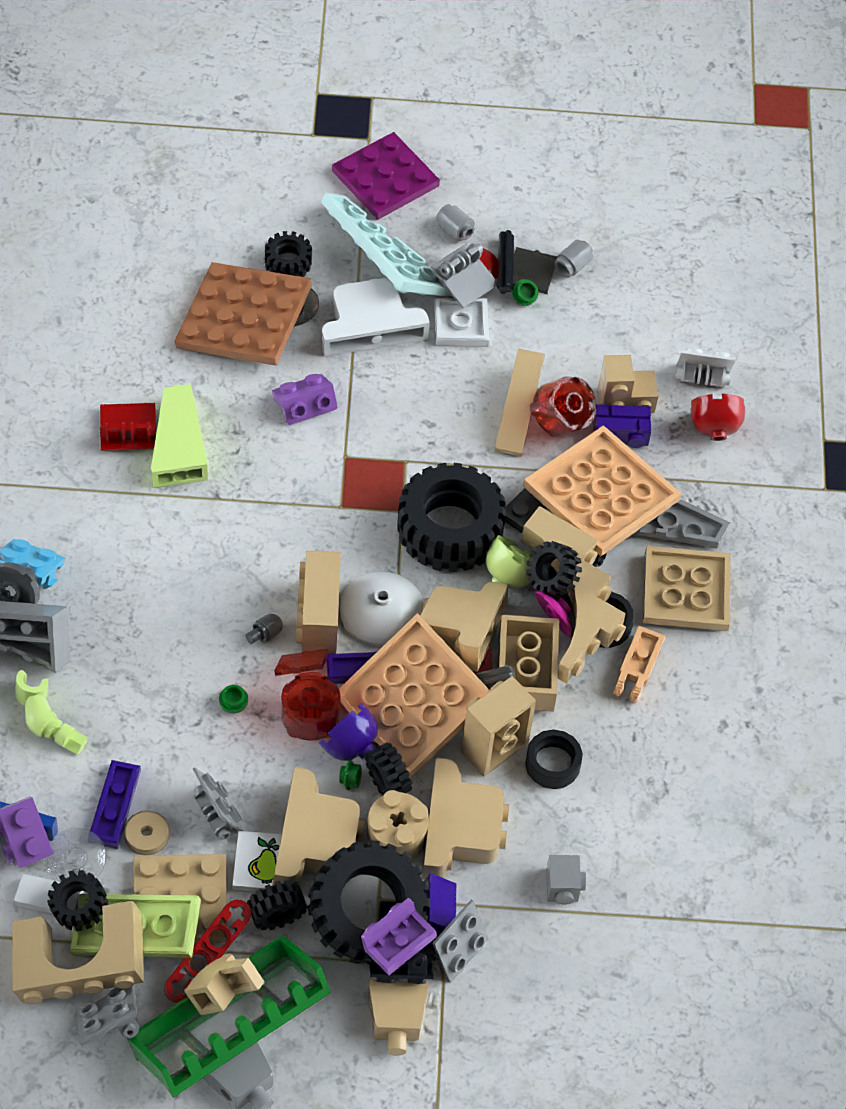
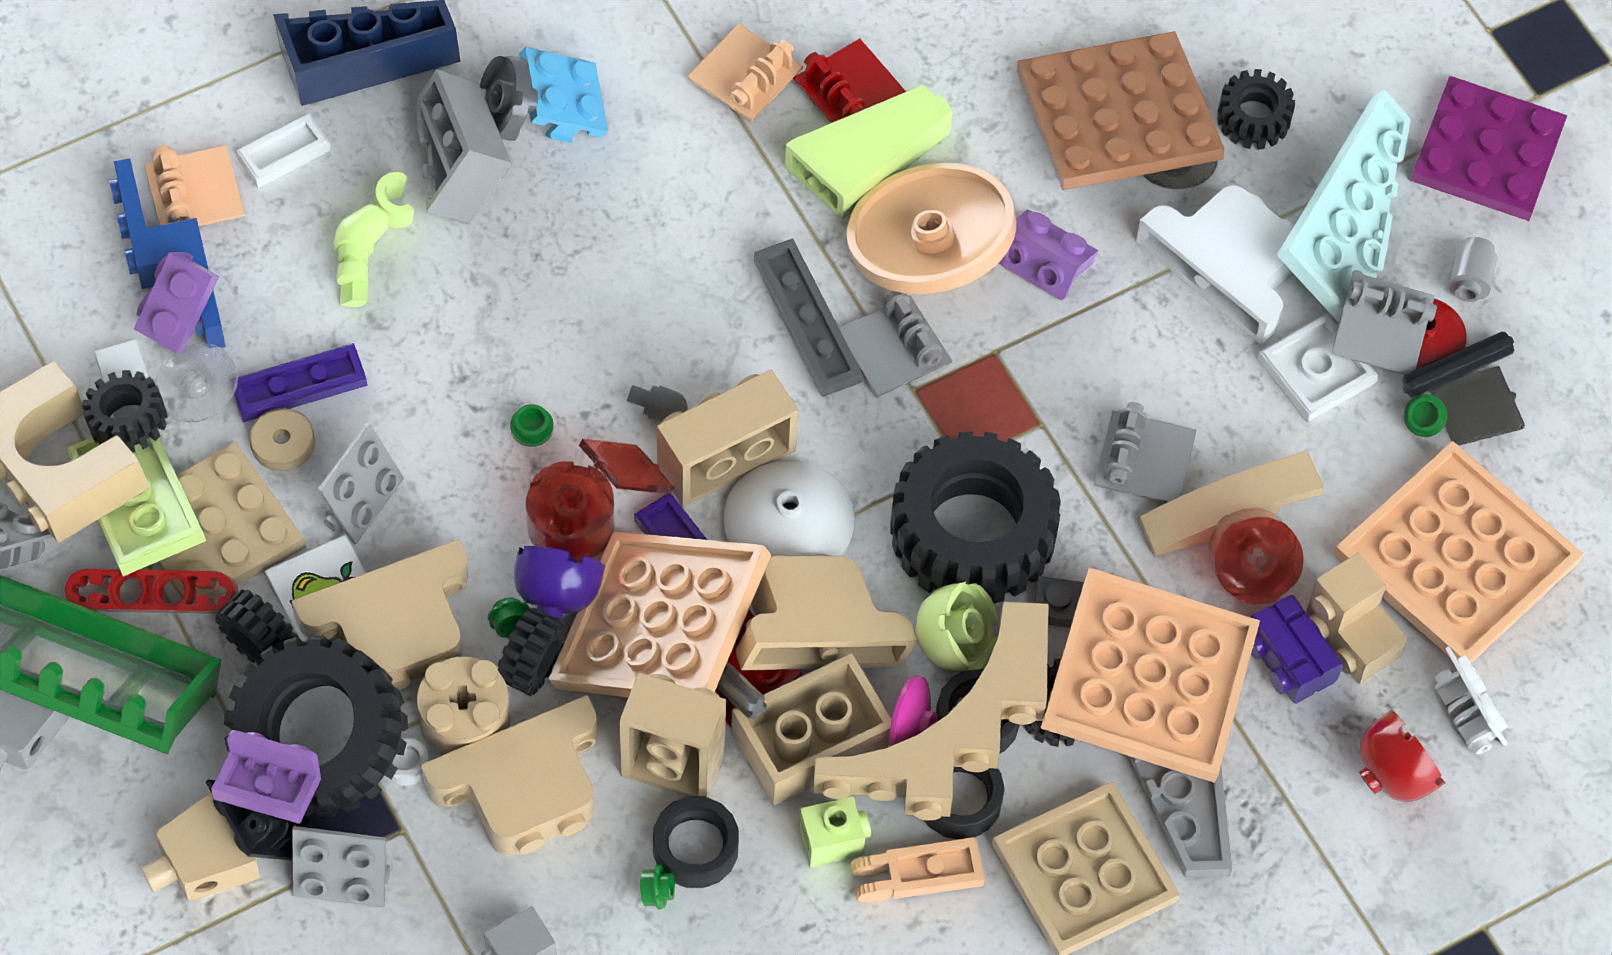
camera: 60 degrees right, 5 degrees up
(78, 469) = (746, 71): none -> light nougat hinge
(220, 982) = (95, 621): tan brick -> none
(256, 436) = (931, 228): none -> light nougat dish
(263, 527) = (808, 317): none -> dark grey plate
(310, 498) = (894, 345): none -> light grey hinge
(443, 902) = (387, 814): dark purple tile -> none
(460, 425) = (1144, 455): none -> light grey hinge
(567, 568) = (954, 671): black tyre -> none
(569, 792) = (656, 887): none -> green plate
(574, 258) = (1533, 443): light grey brick -> none
(591, 690) = (833, 831): none -> yellowish green brick
(614, 320) = (1460, 553): none -> light nougat plate

